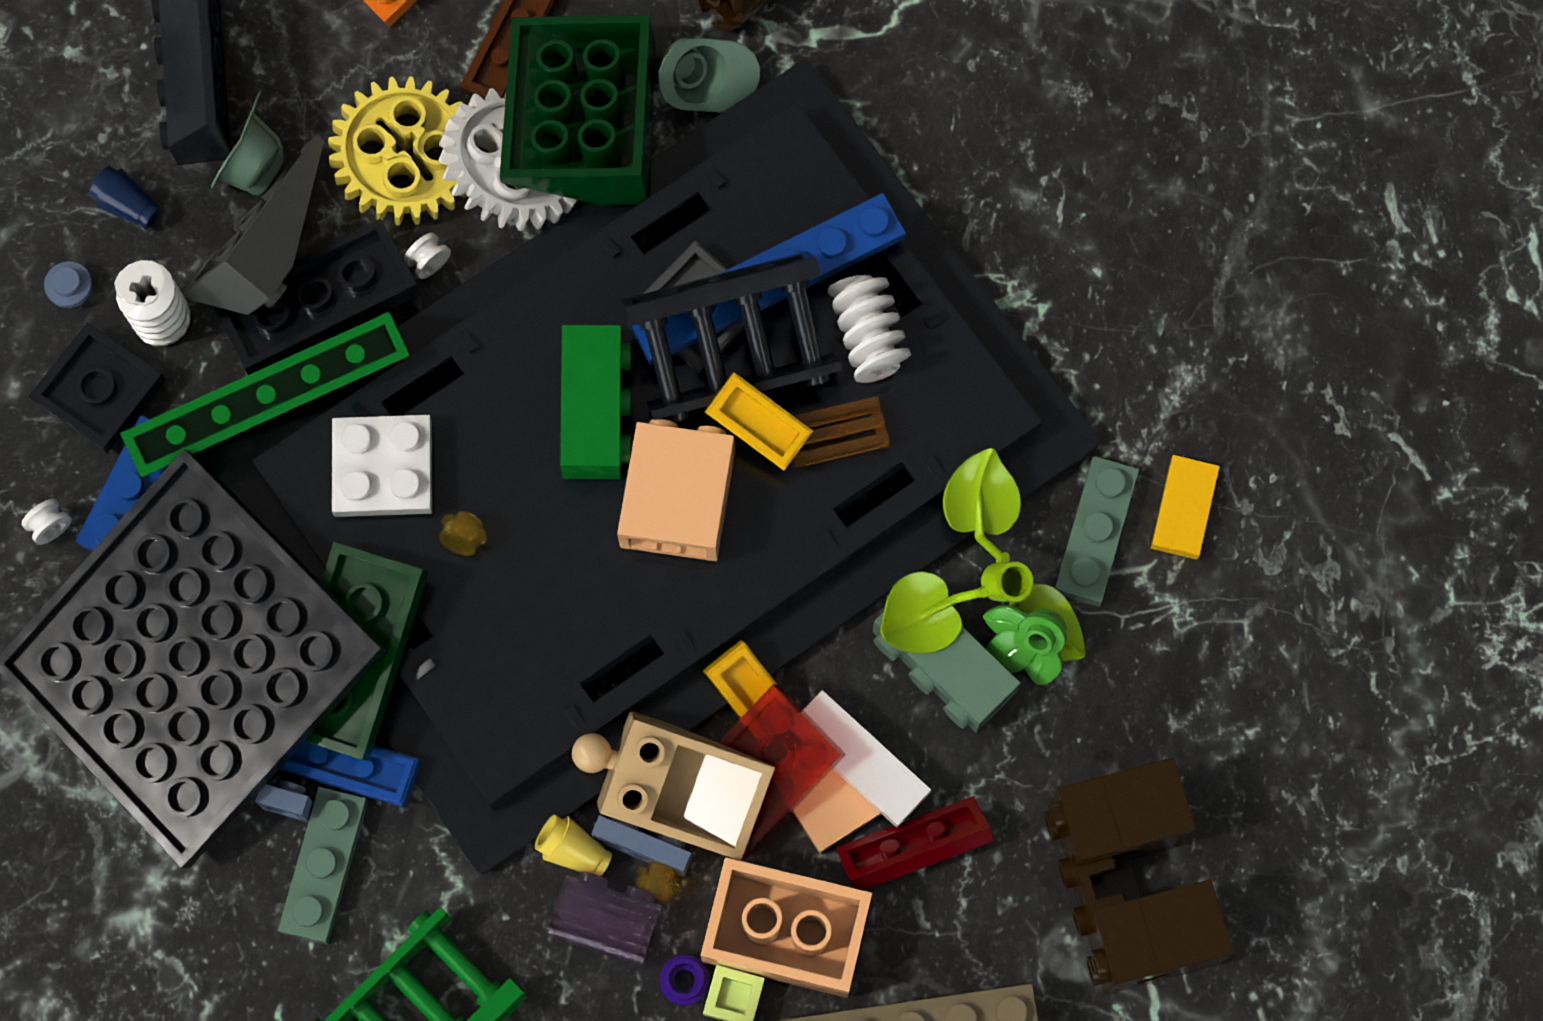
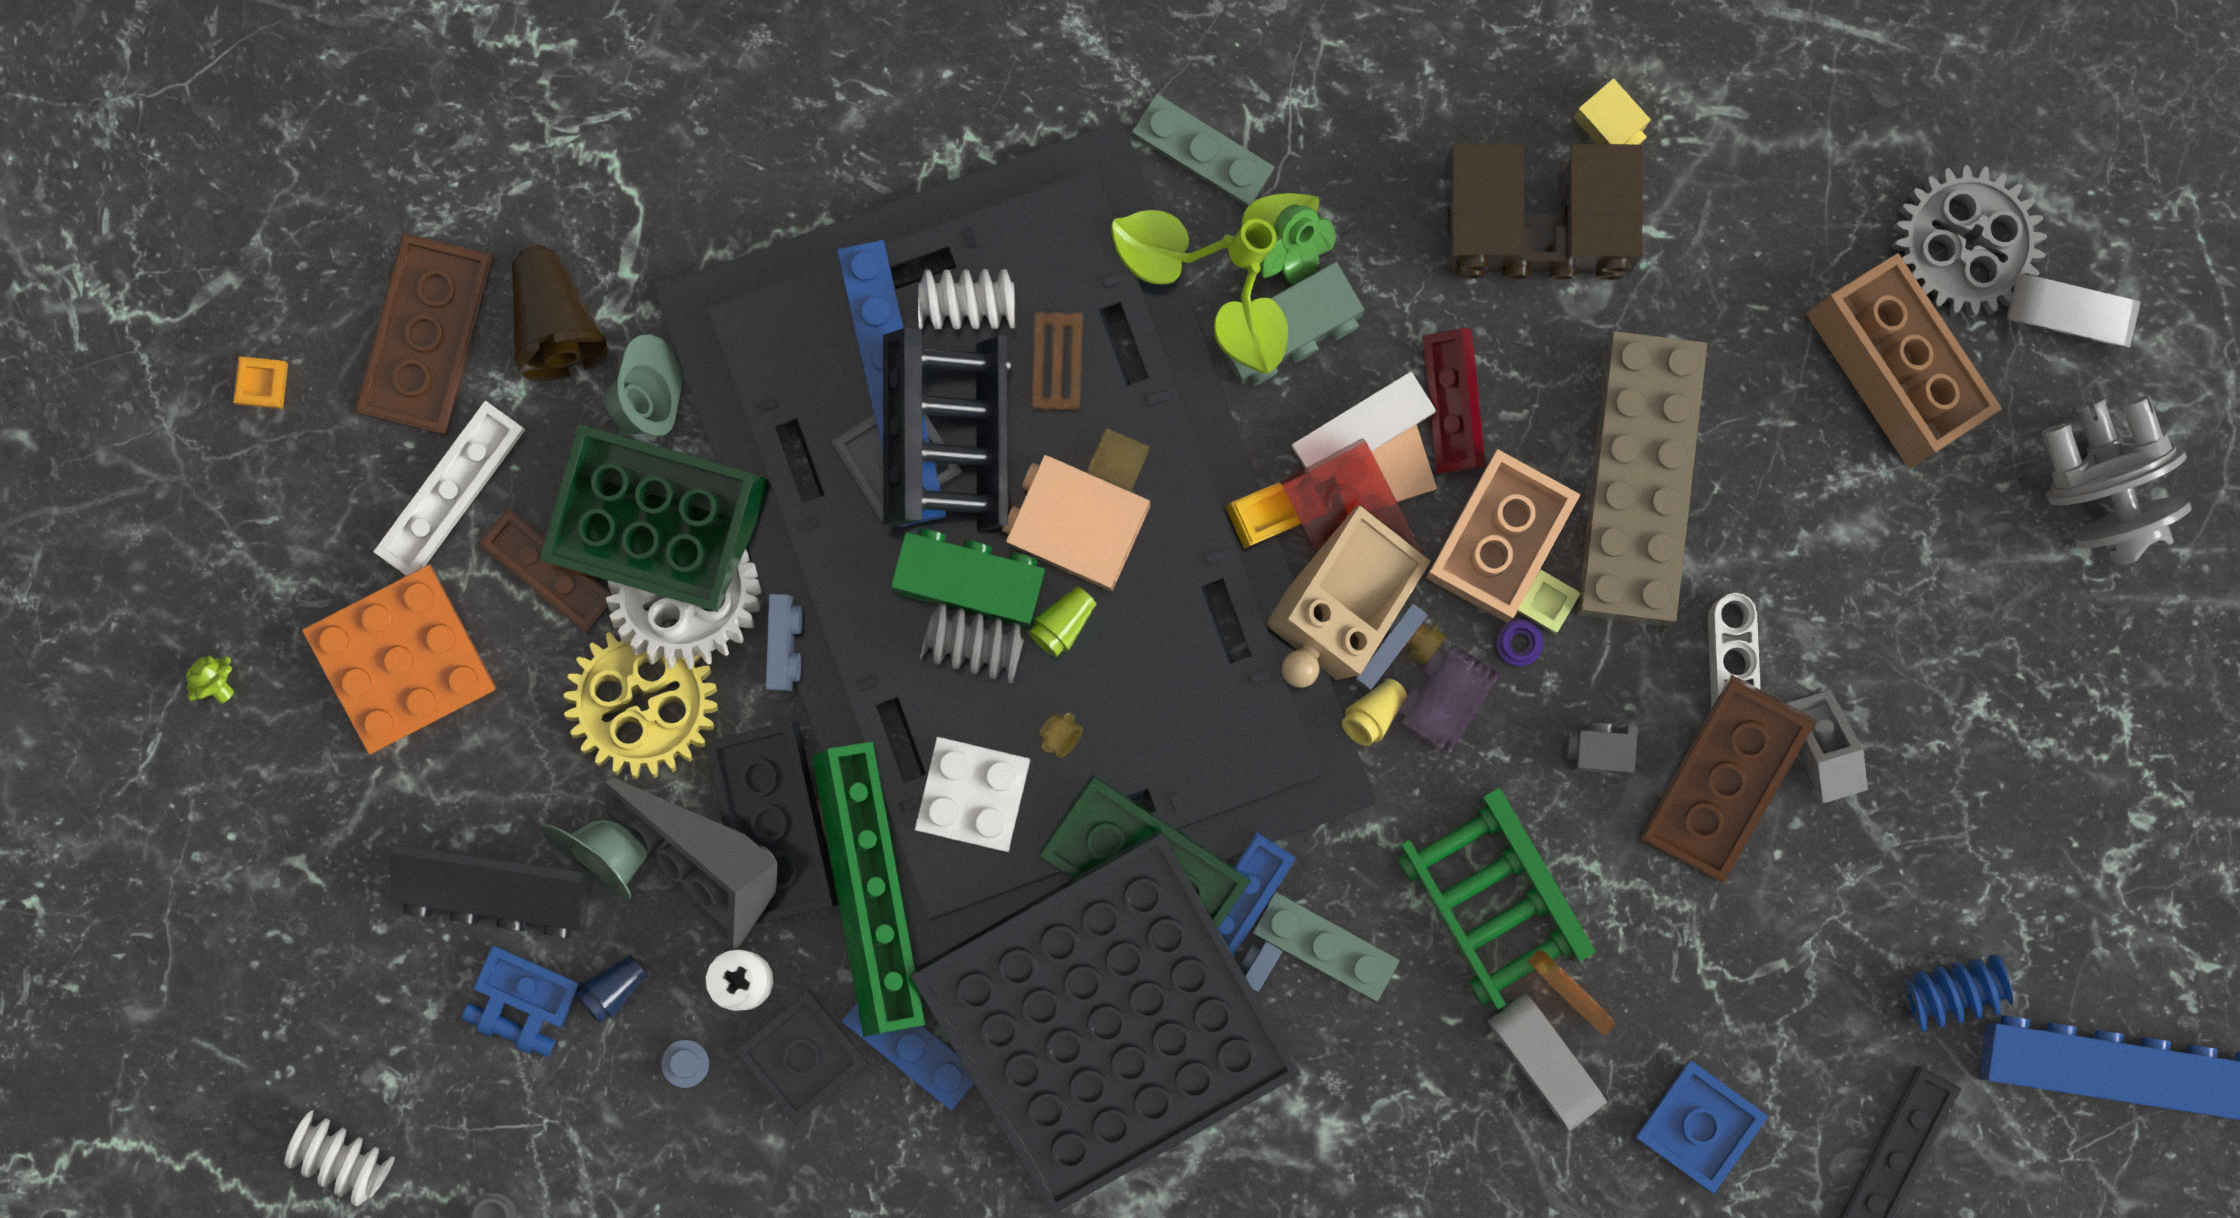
camera: 80 degrees left, 10 degrees up
(46, 521) = (924, 1134): white bush -> none
(108, 122) = (528, 988): none -> blue plate
(427, 255) = (756, 706): white bush -> none
(477, 259) = (784, 622): none -> sand blue plate
(528, 422) = (973, 642): none -> light grey piece
(575, 503) = (1061, 622): none -> lime cone
(753, 516) = (1118, 460): none -> clear yellow plate
(758, 421) = (1035, 428): yellow tile -> none
(1185, 507) = (1203, 62): yellow tile -> none
(1258, 930) = (1612, 117): none -> light yellow brick

